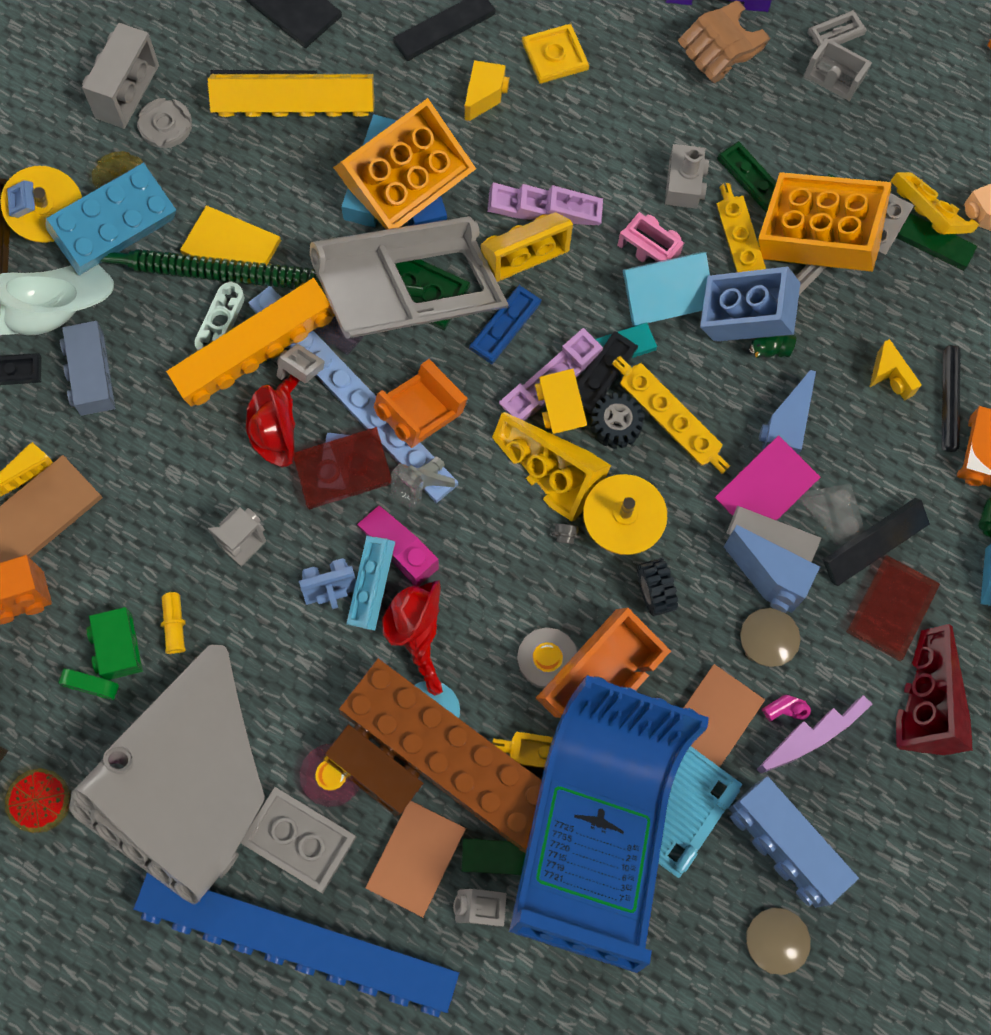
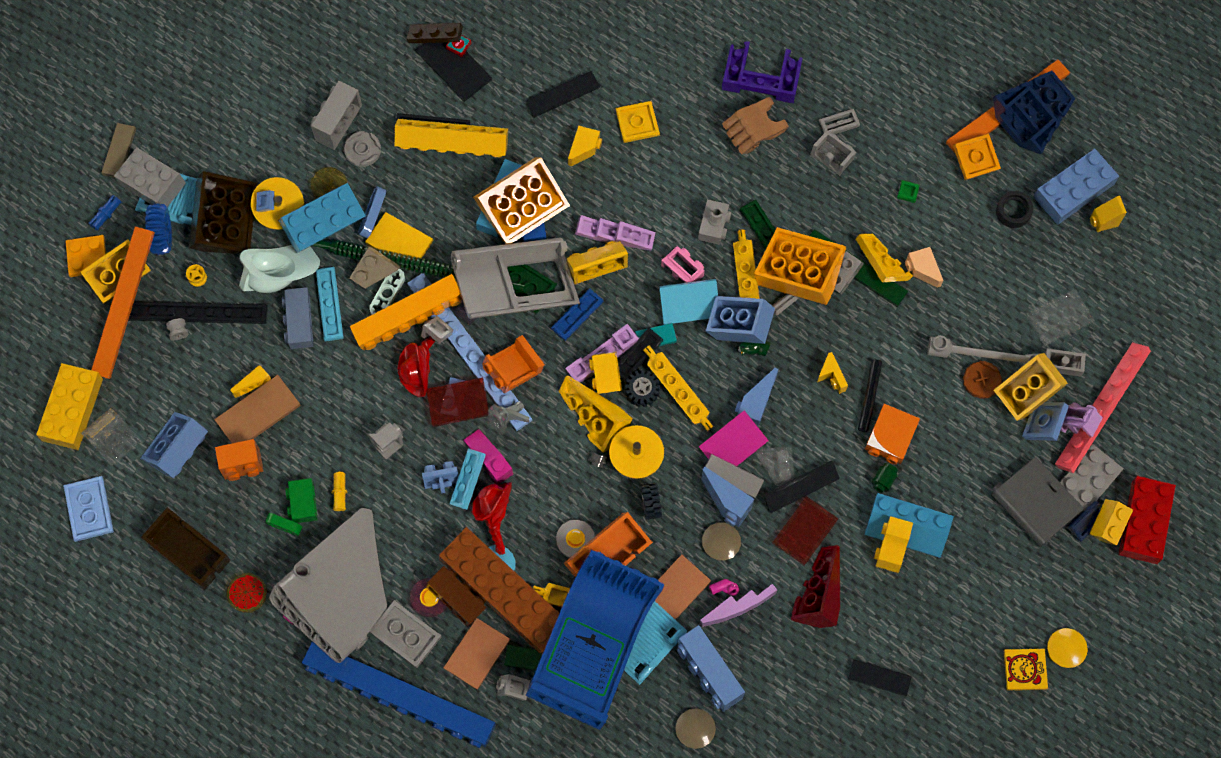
camera: 10 degrees right, 0 degrees up
(134, 344) = (329, 304): none -> medium azure tile
(186, 207) = (372, 212): none -> medium blue beam
(194, 284) = (373, 268): none -> dark tan wing
(949, 112) = (908, 191): none -> green tile

